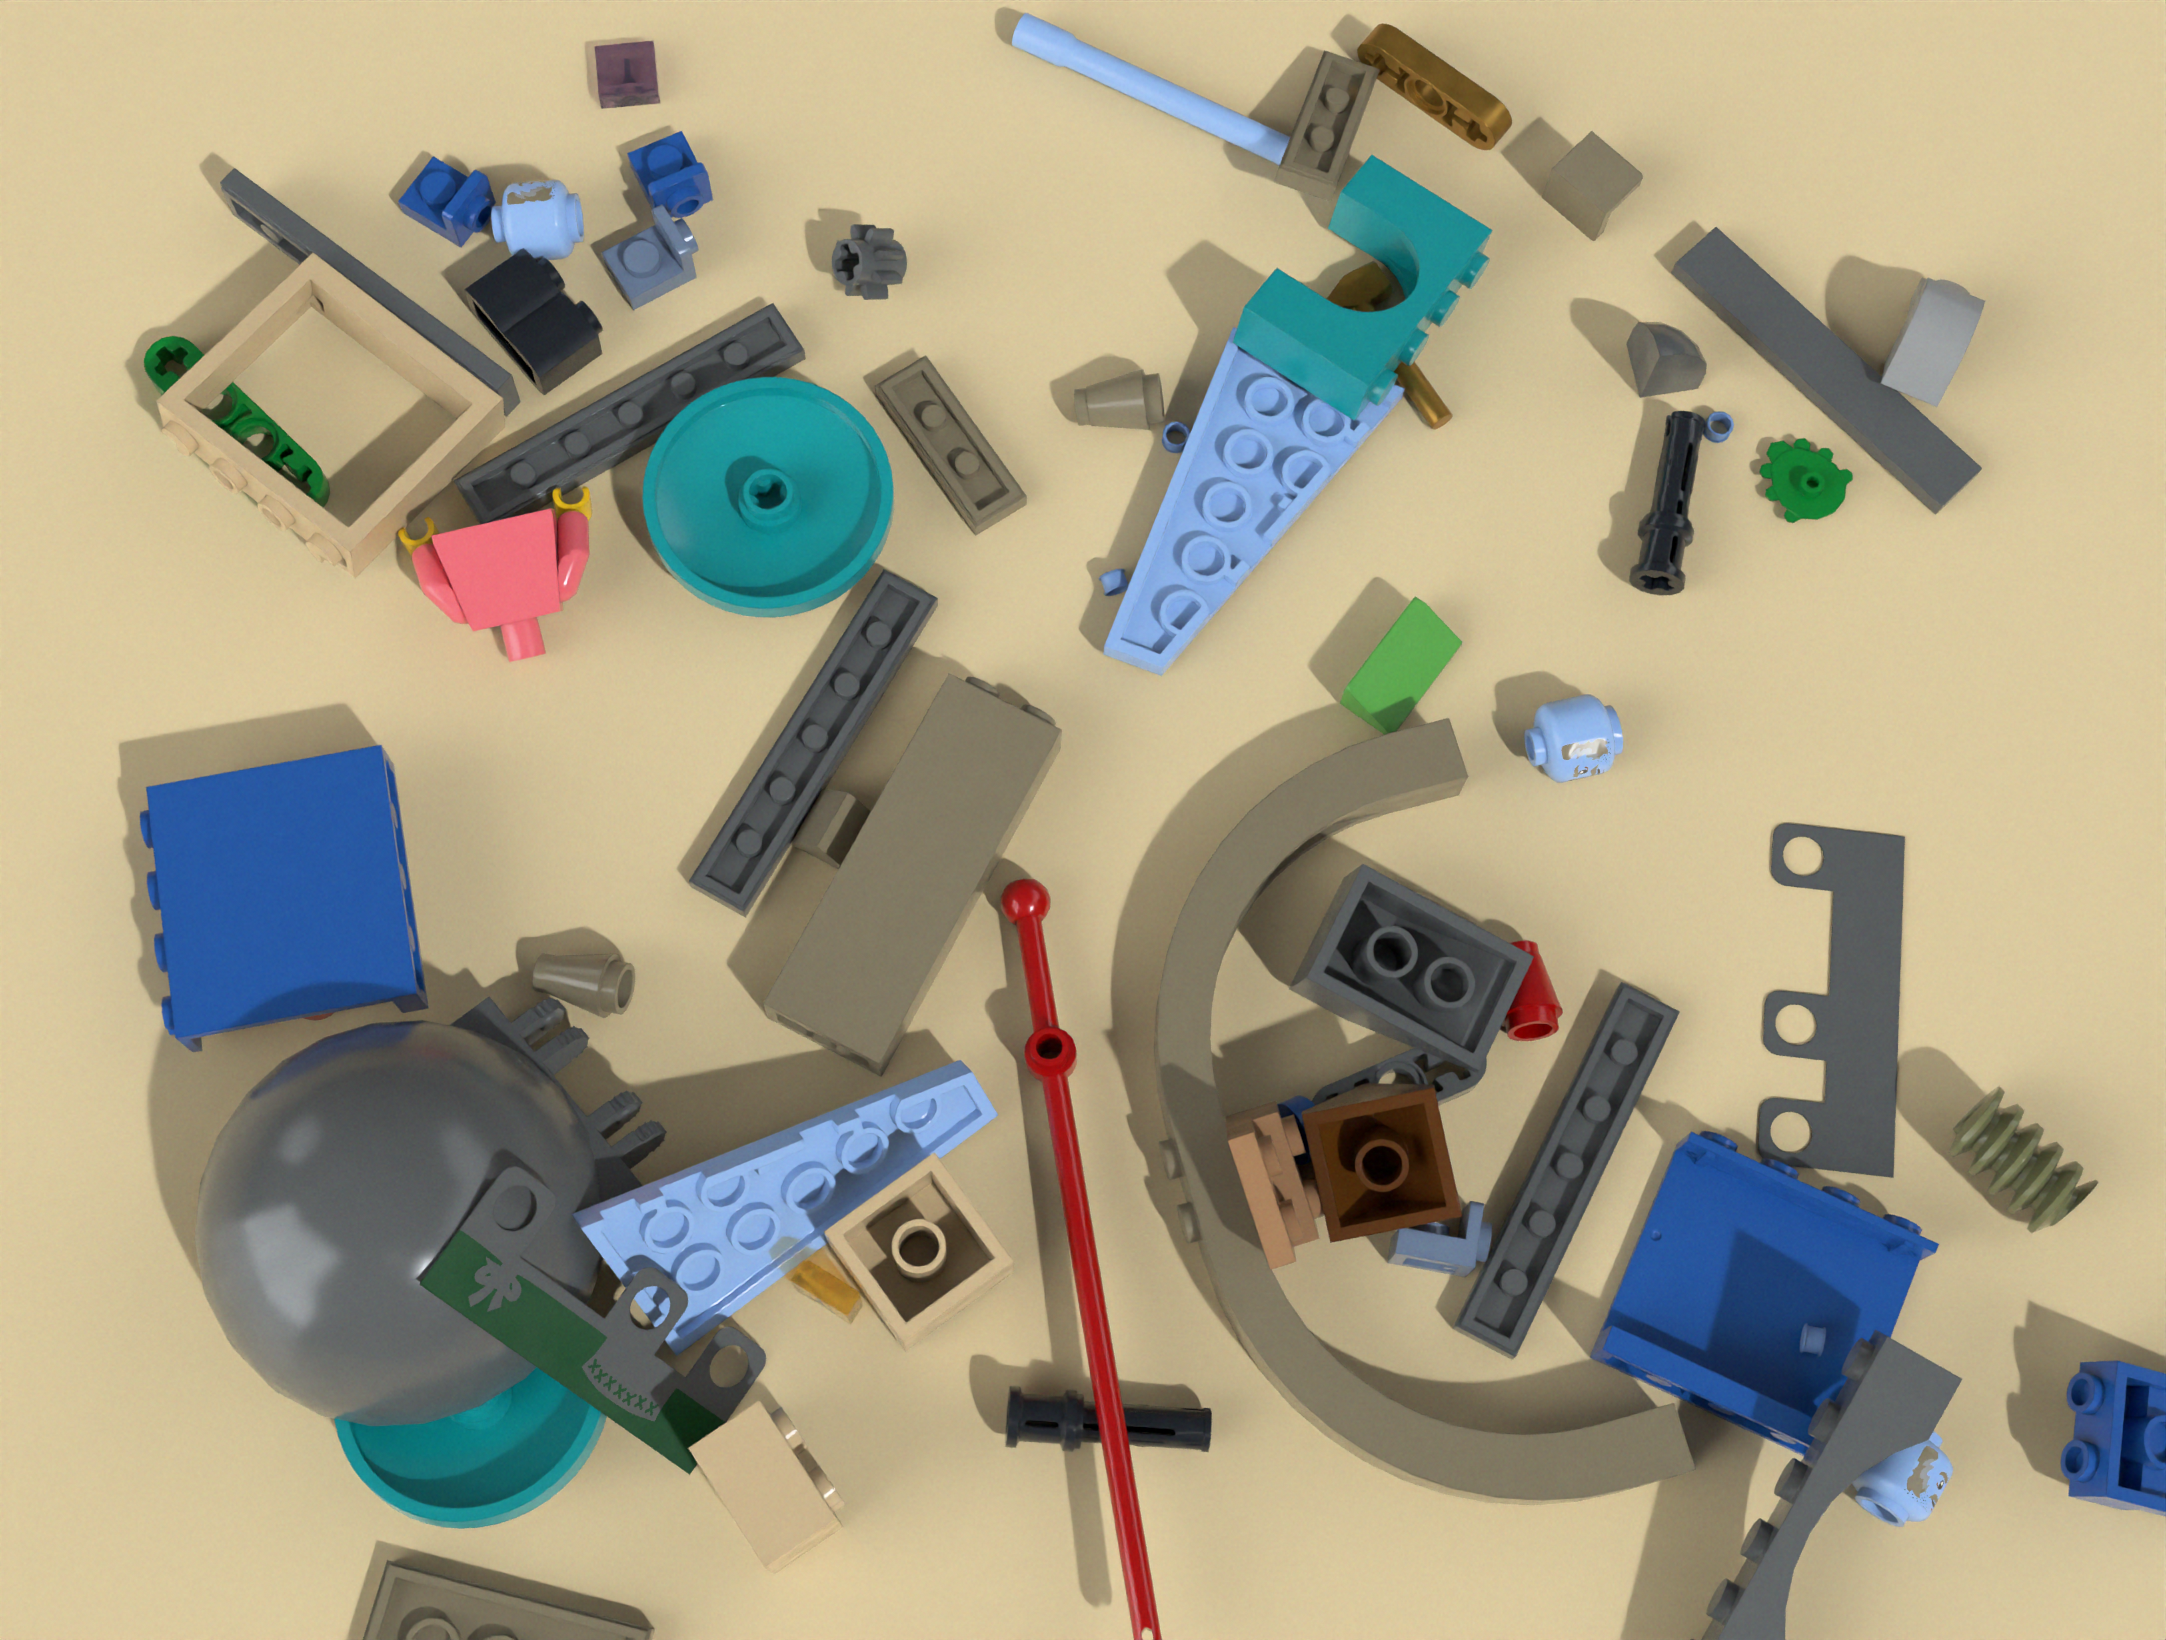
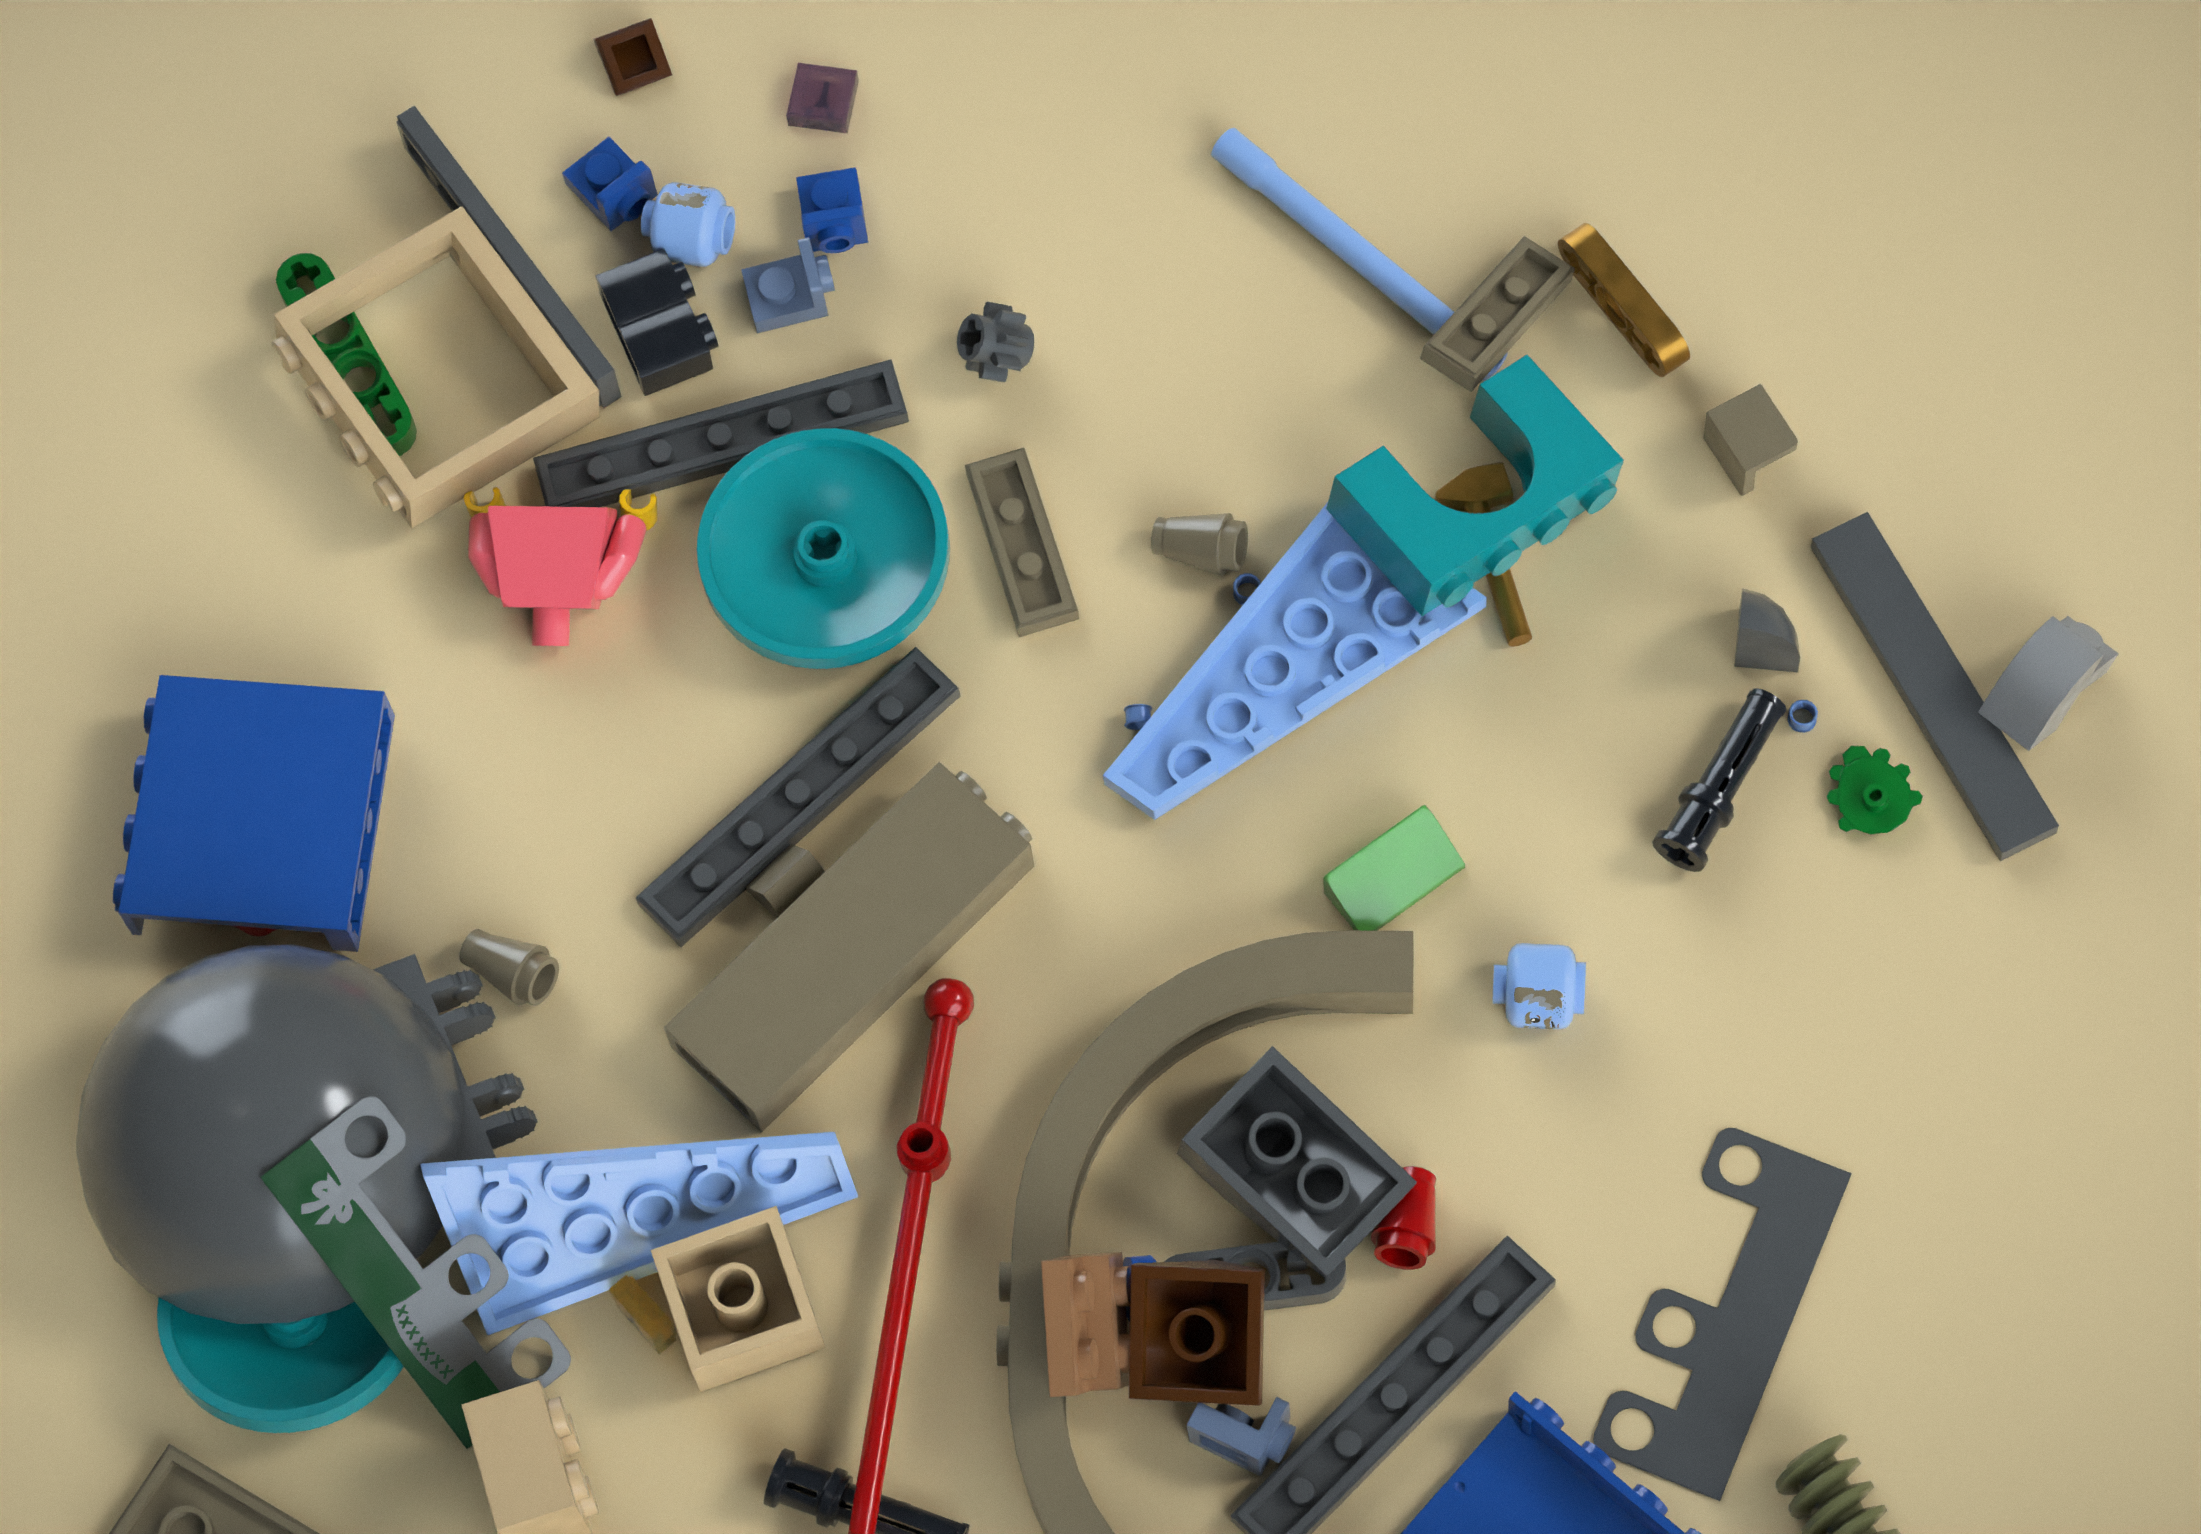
camera: 30 degrees right, 5 degrees down
(432, 77) = (633, 56): none -> reddish brown slope

